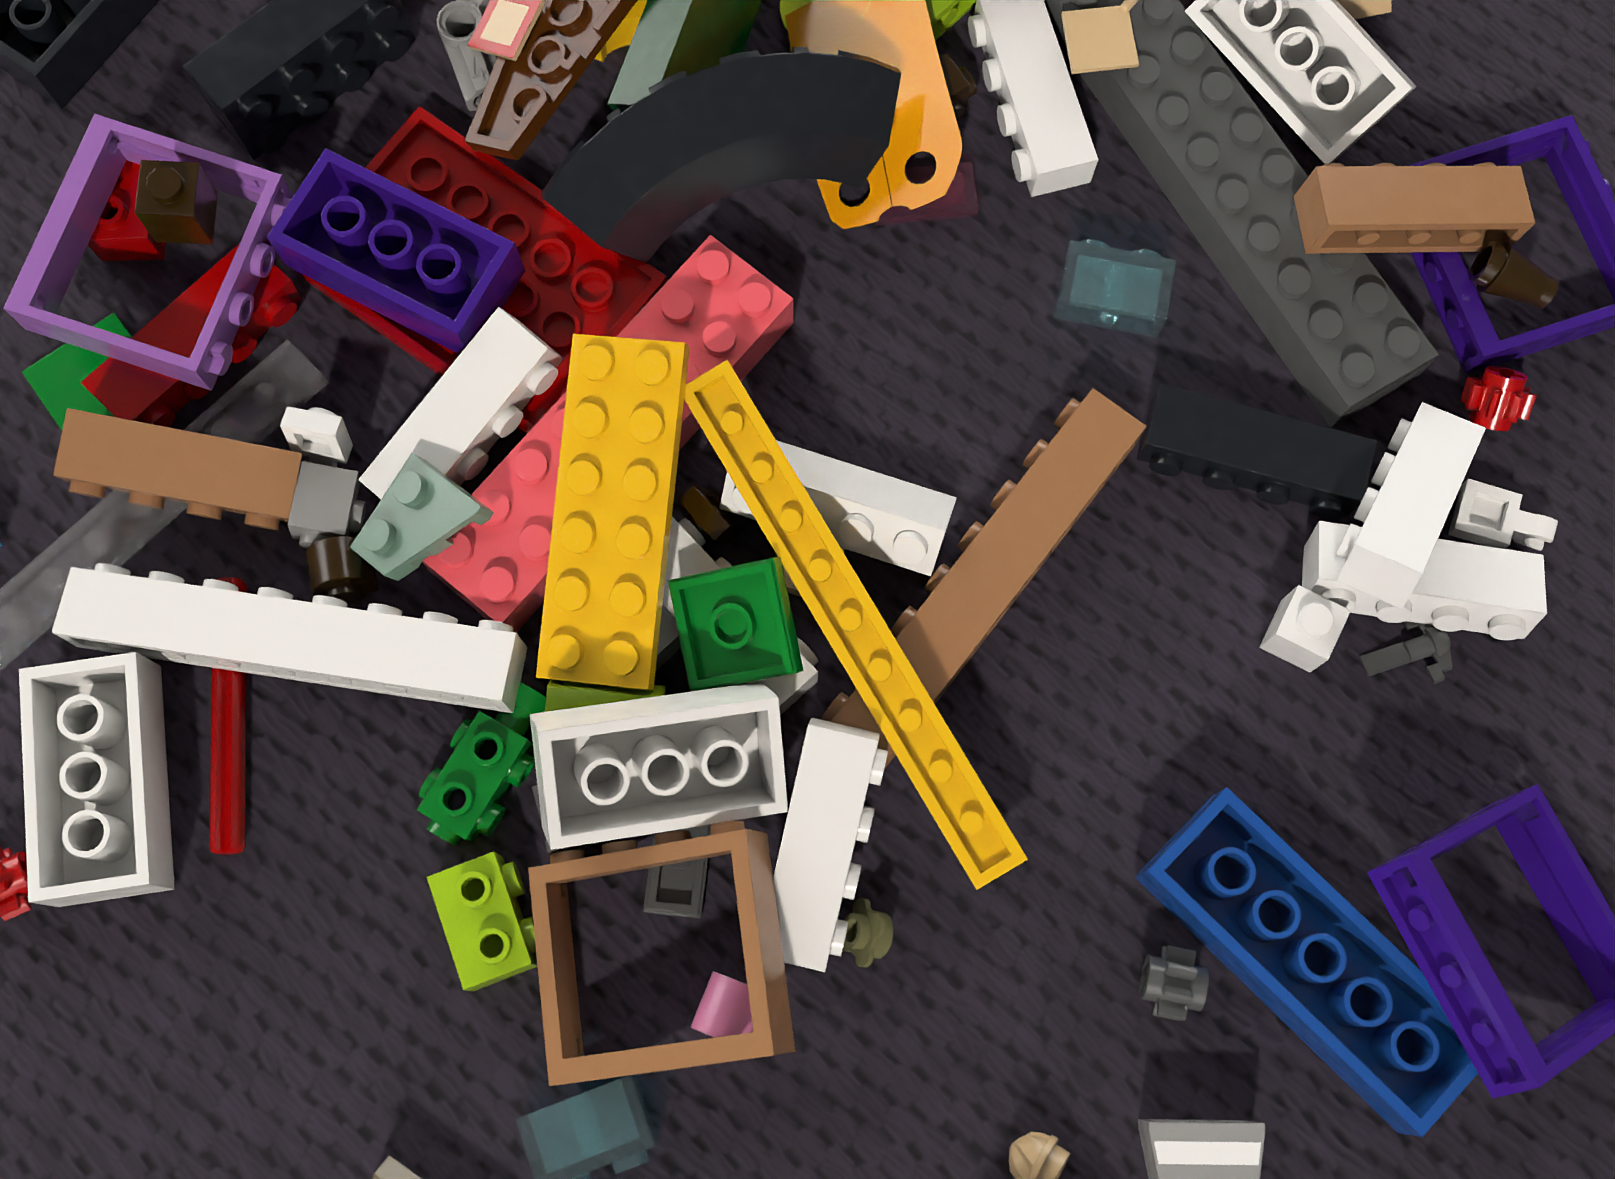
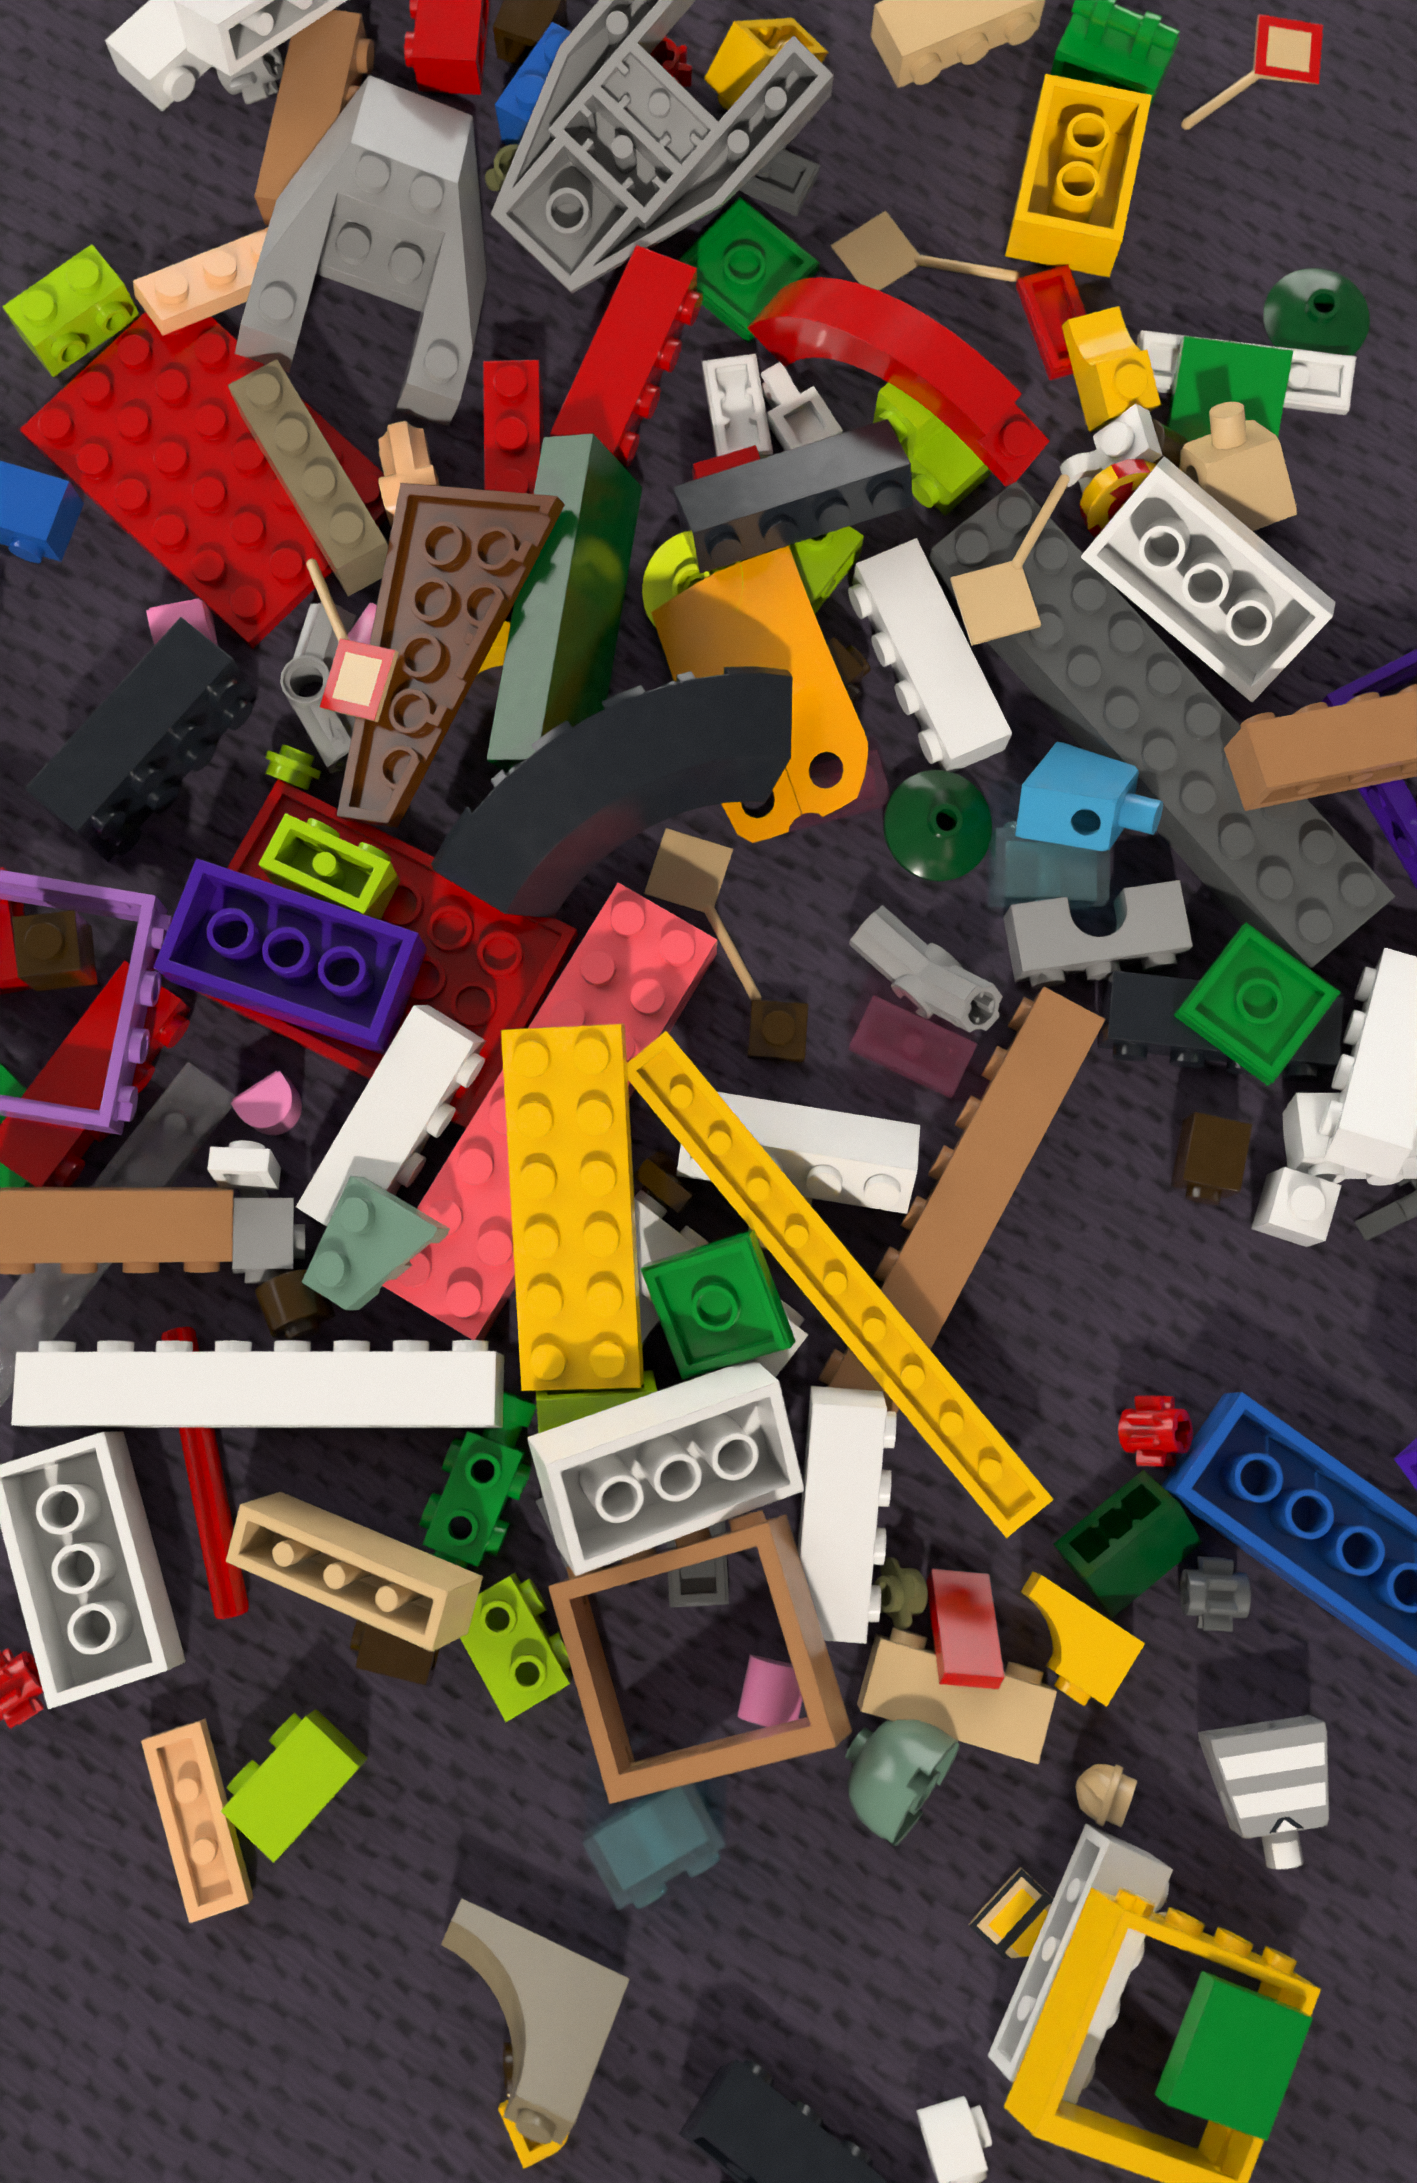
camera: 10 degrees left, 5 degrees up
(153, 1040) = (197, 1832): none -> light nougat plate
(250, 1019) = (294, 1783): none -> lime brick
(346, 820) = (354, 1570): none -> tan brick
(355, 389) = (270, 1105): none -> bright pink brick
(377, 901) = (392, 1655): none -> dark brown brick
(435, 98) = (292, 766): none -> lime plate
(447, 176) = (321, 865): none -> lime brick
(783, 250) = (691, 875): none -> tan piece
(835, 1104) = (896, 1774): none -> sand green cylinder
(838, 397) = (778, 1031): none -> dark brown plate
(907, 1039) = (905, 1685): none -> tan brick
(923, 975) = (964, 1629): none -> tile
(961, 429) = (912, 1046): none -> clear pink plate
(983, 364) = (926, 973): none -> light grey piece
(1002, 253) = (915, 836): none -> dark green dish
(1041, 1014) = (1086, 1646): none -> yellow arch
(1097, 922) = (1128, 1543): none -> dark green brick
(1109, 360) = (1048, 944): none -> light grey arch
(1138, 817) = (1155, 1431): none -> red gear
(1155, 226) = (1083, 800): none -> dark azure torso
(1229, 571) = (1211, 1157): none -> dark brown brick
(1292, 432) = (1257, 1004): none -> green tile

